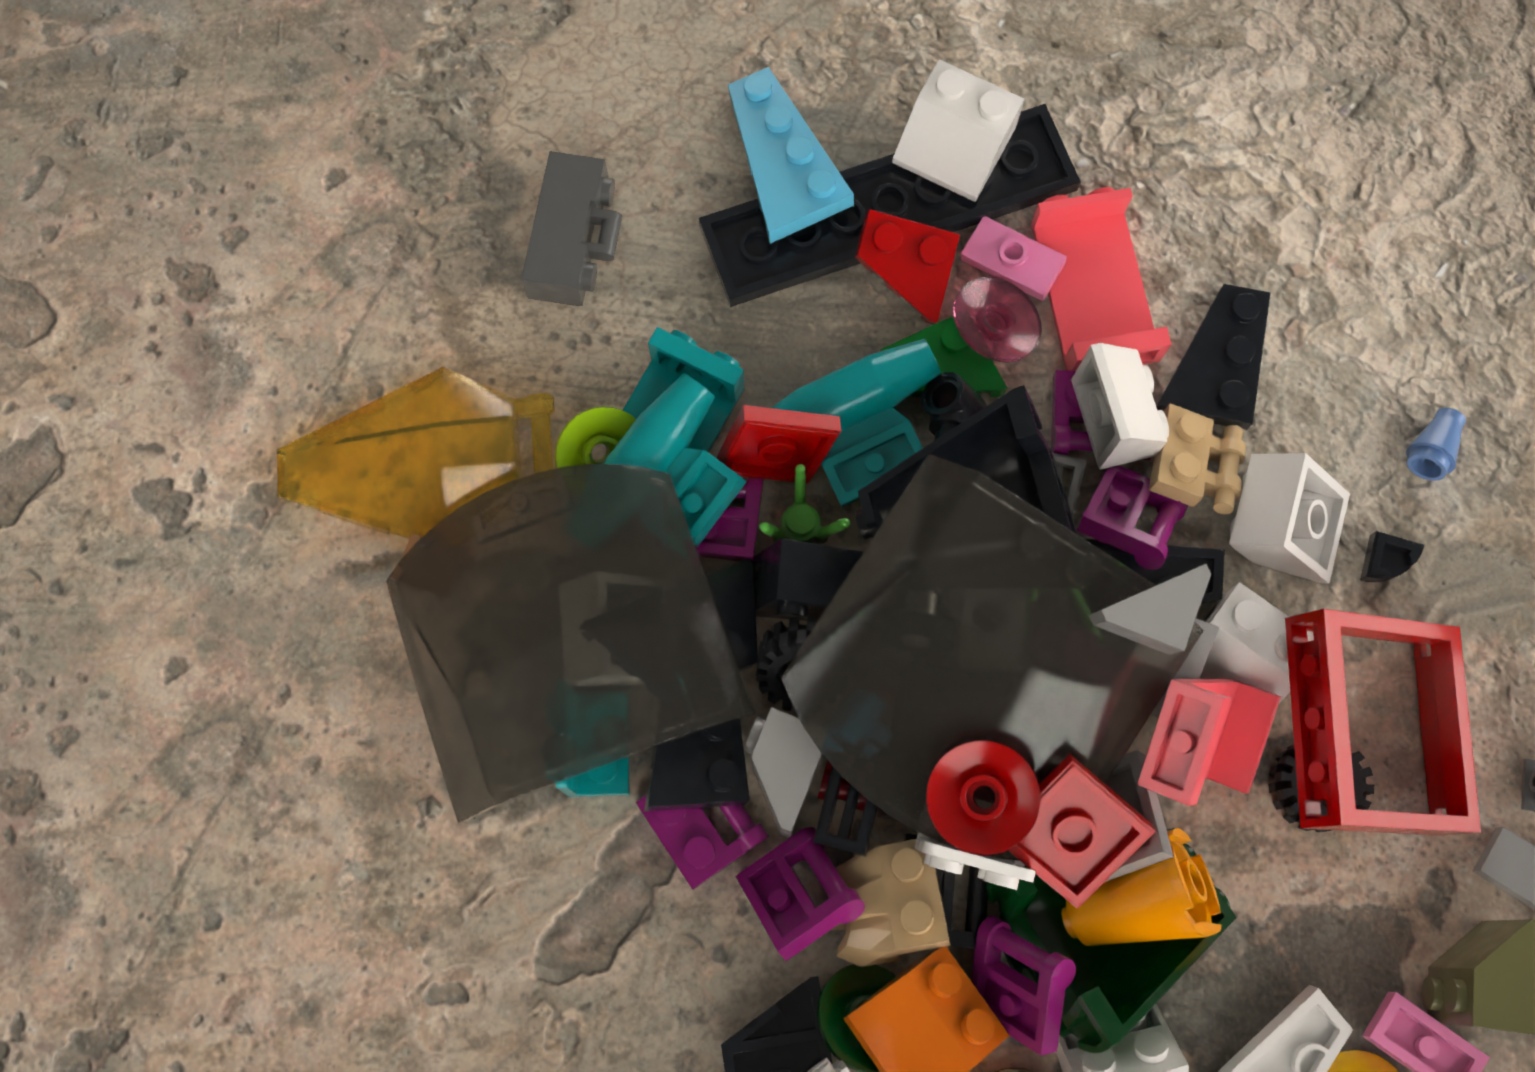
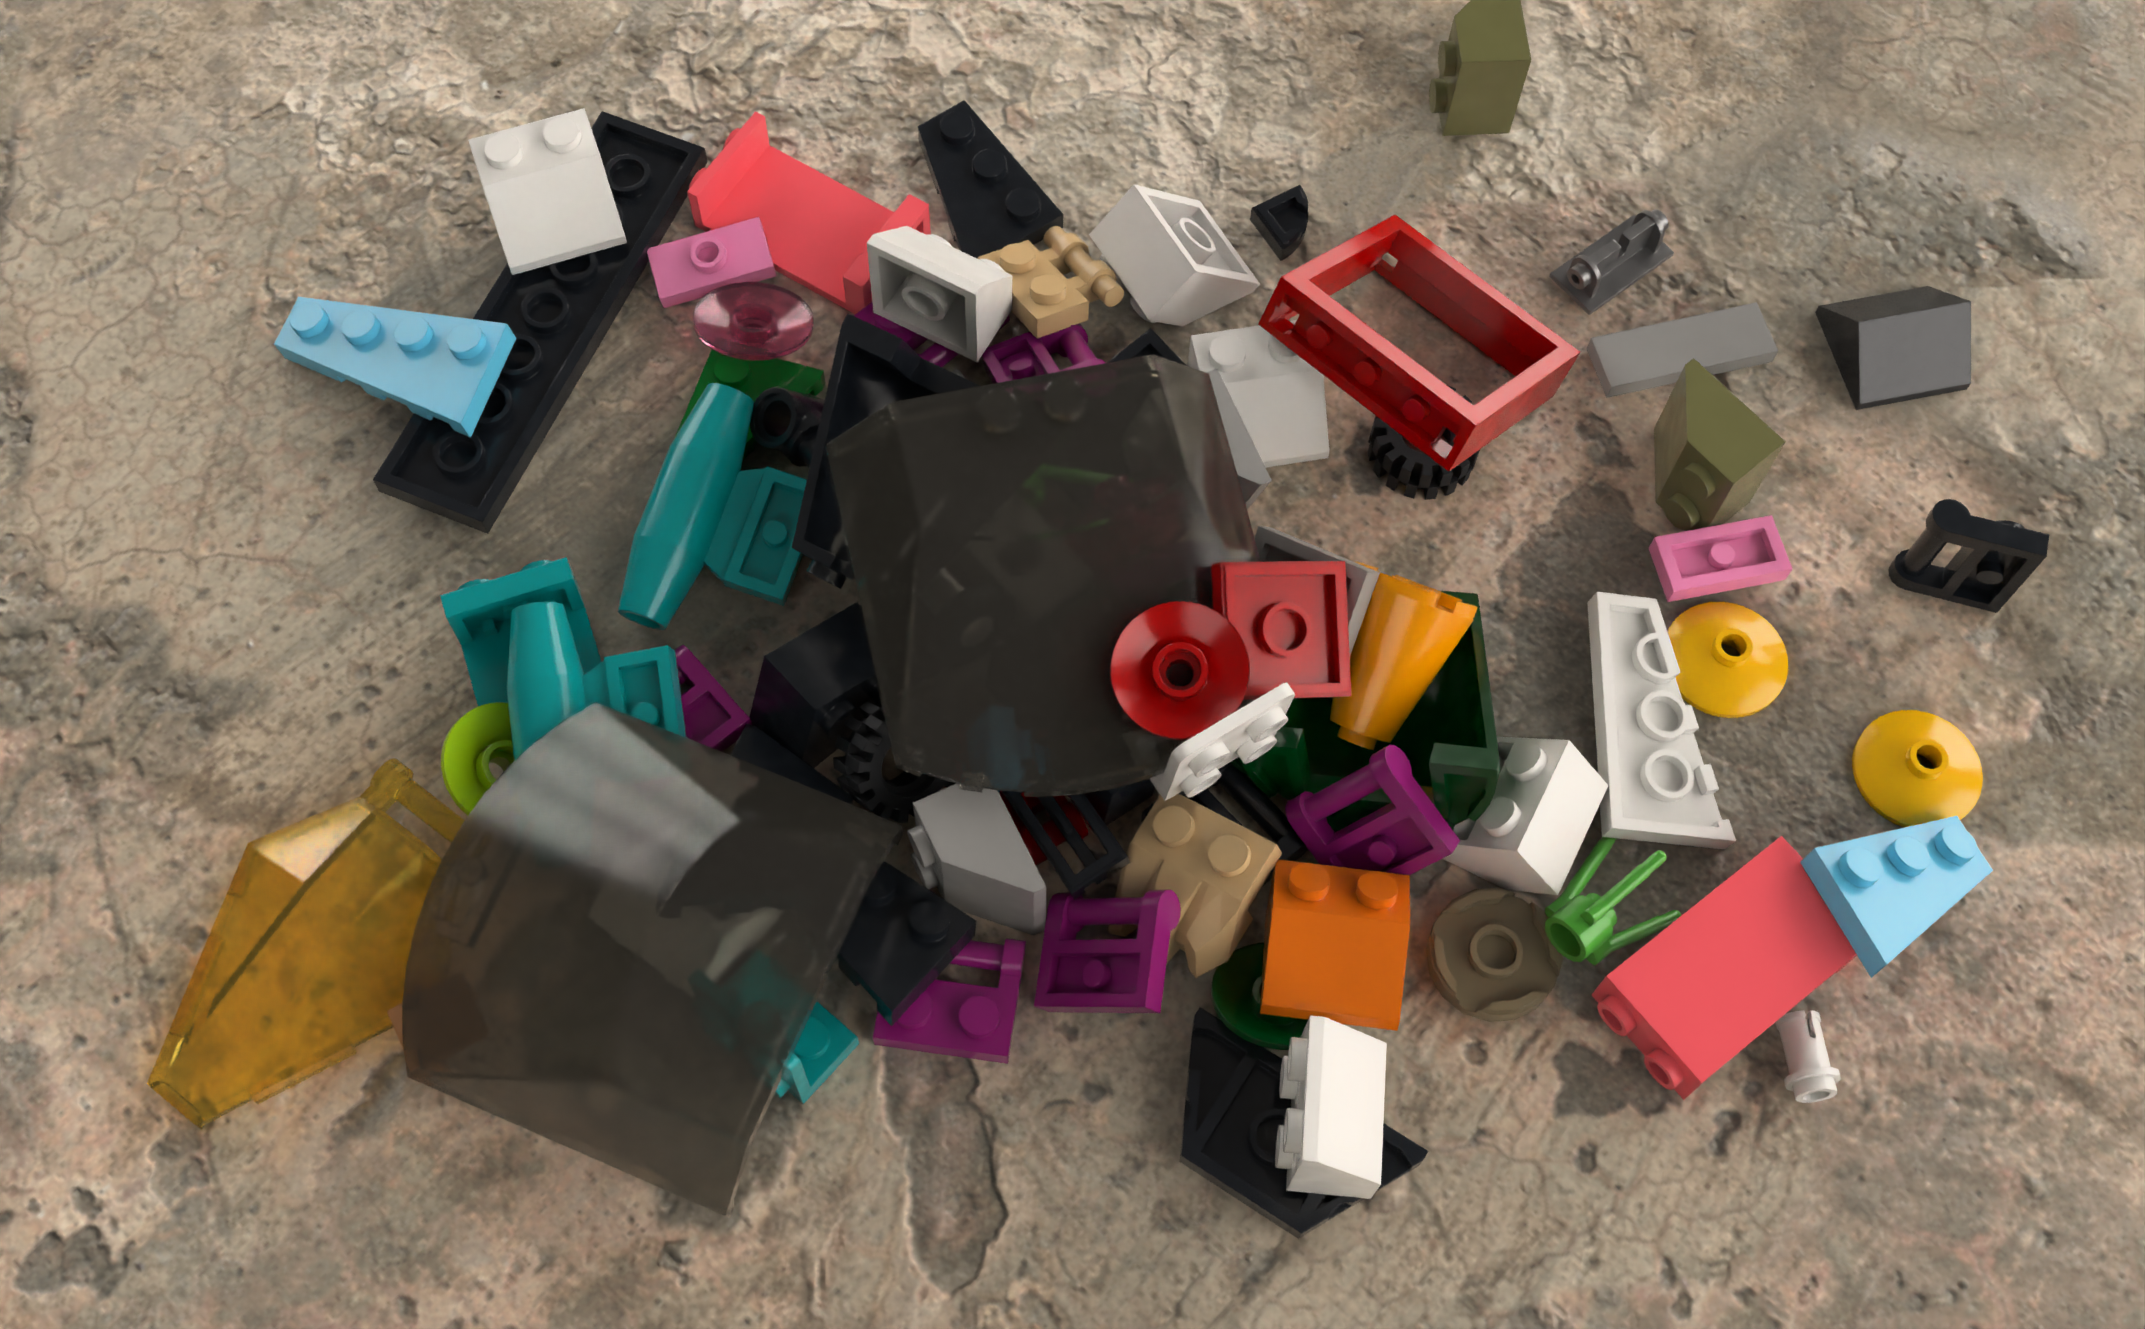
camera: 50 degrees left, 10 degrees down
(560, 242) = (229, 587): dark grey piece -> none
(774, 441) = (670, 587): red plate -> none
(801, 520) = (762, 639): bright green plant -> none
(909, 259) = (618, 340): red wing -> none
(1160, 615) = (1166, 370): light grey slope -> none
(1208, 733) = (1302, 464): coral panel -> none
(1437, 446) = (1227, 103): medium blue cone -> none

